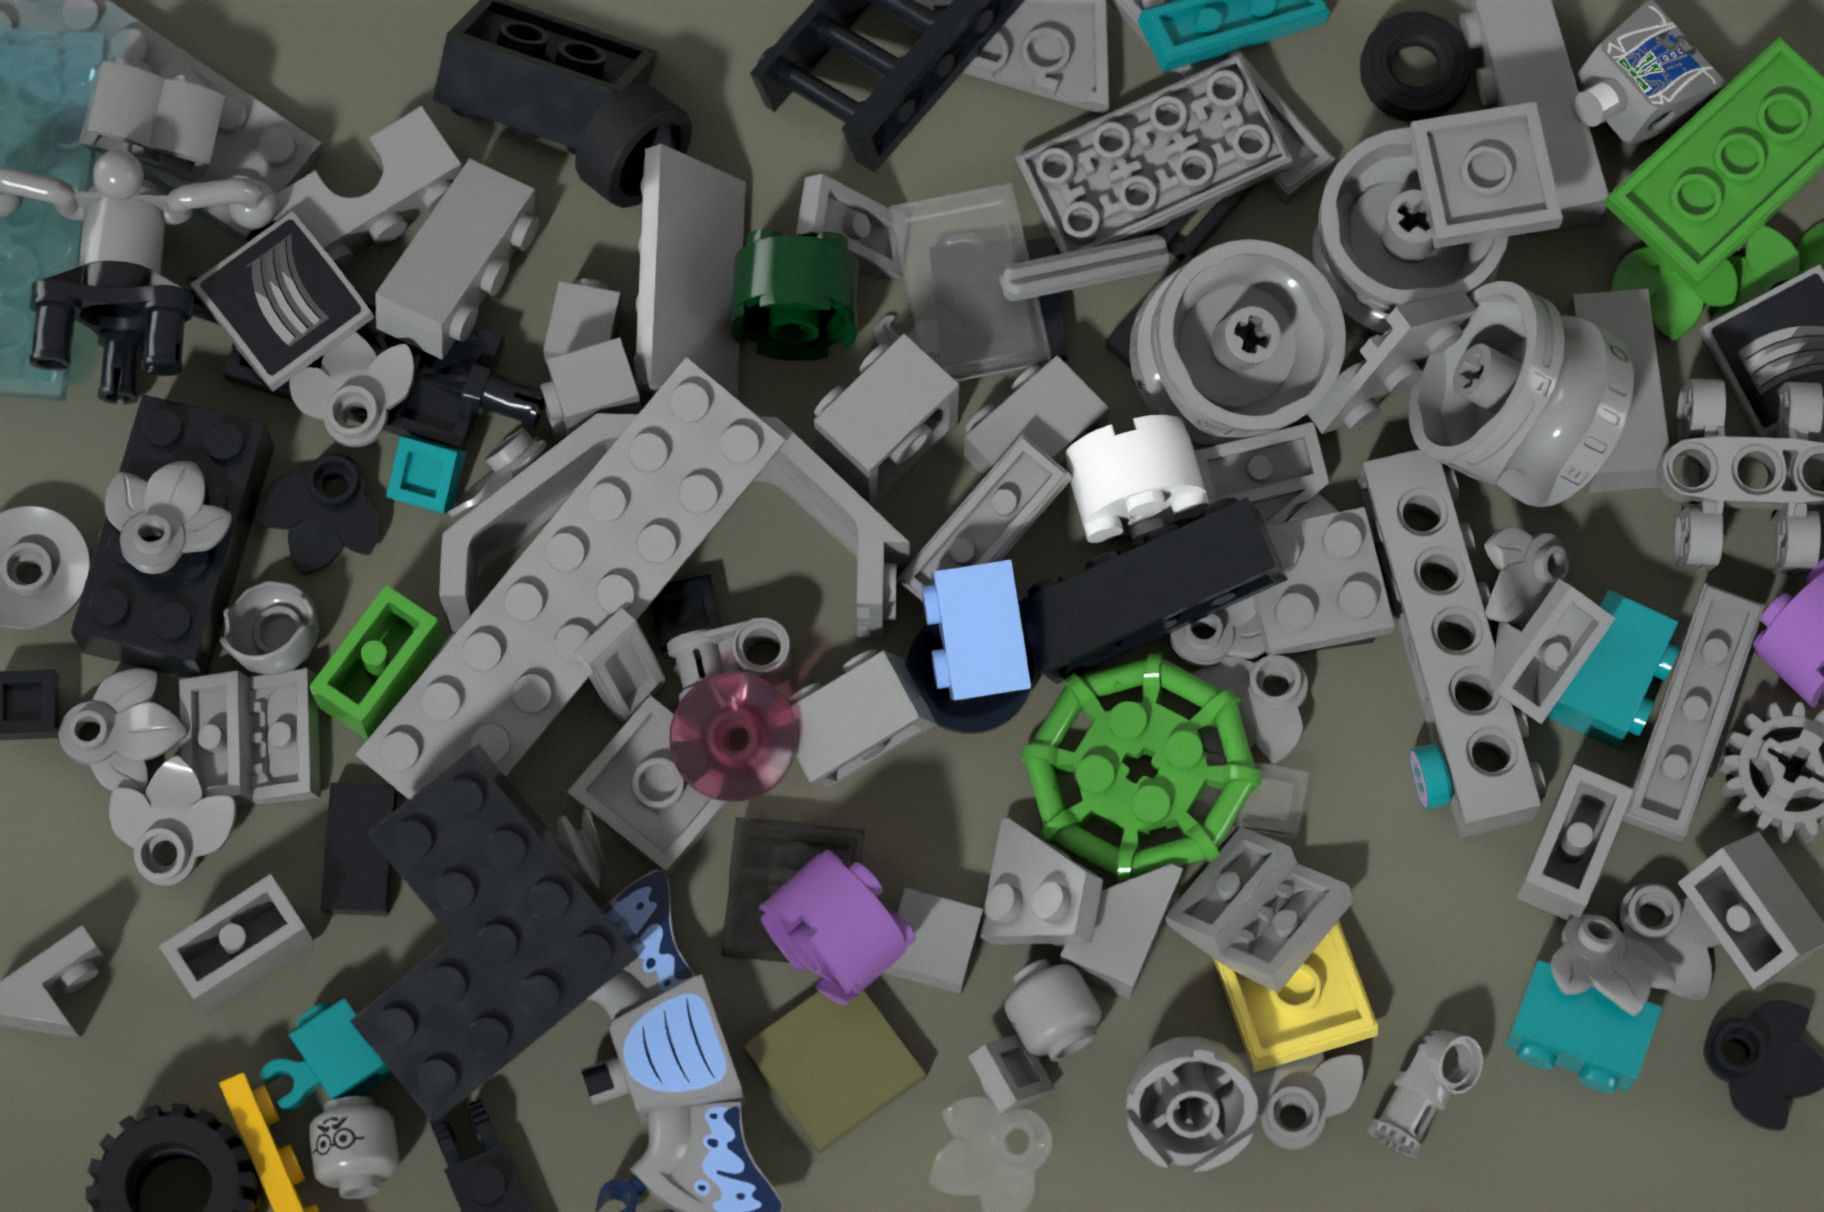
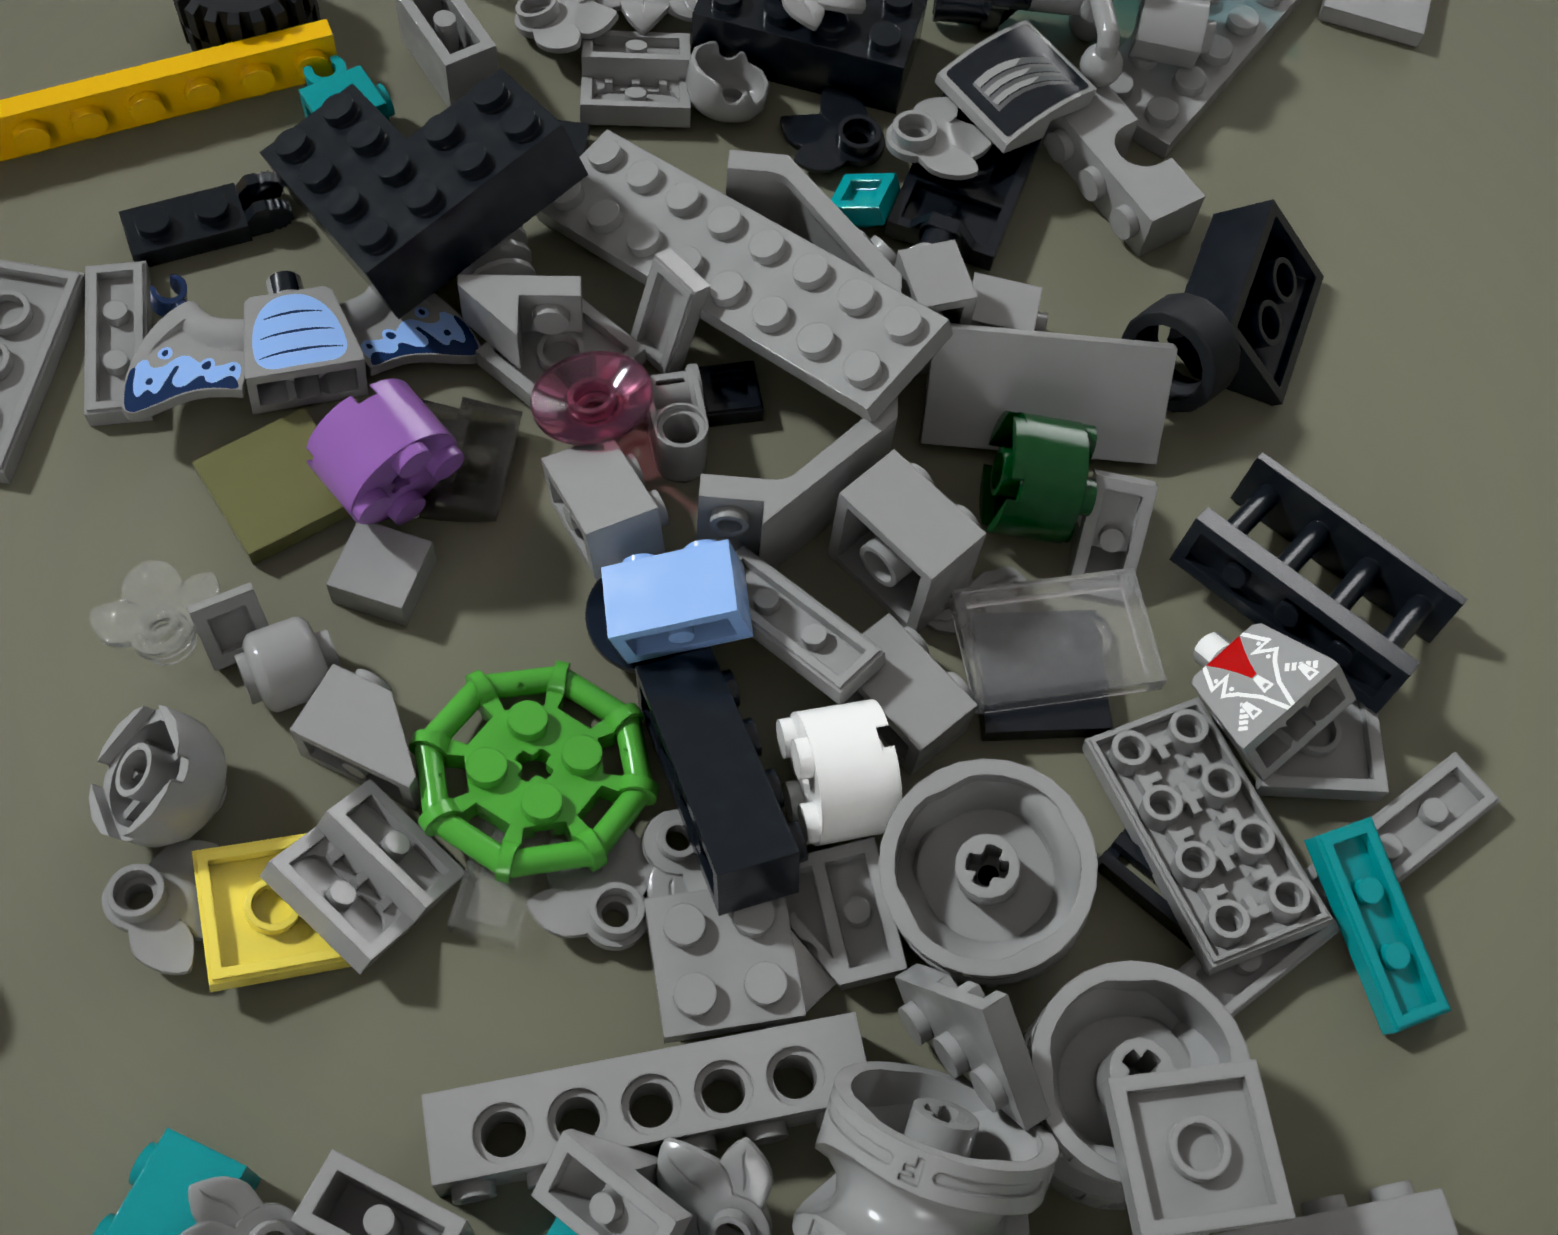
camera: 85 degrees right, 10 degrees down
(353, 1146) = (258, 112): light grey head -> none
(377, 662) = (684, 133): bright green brick -> none
(457, 259) = (1063, 217): light grey brick -> none
(635, 833) = (514, 304): none -> light grey slope
(1023, 95) = (1268, 693): none -> light grey torso
(1037, 892) = (403, 655): light grey wing -> none
(1084, 267) = (1077, 743): light grey axle -> none
(1422, 31) = (1379, 1109): black tyre -> none
(1426, 1090) = (128, 1032): light grey connector -> none
(1431, 776) = (491, 1066): teal tile -> none

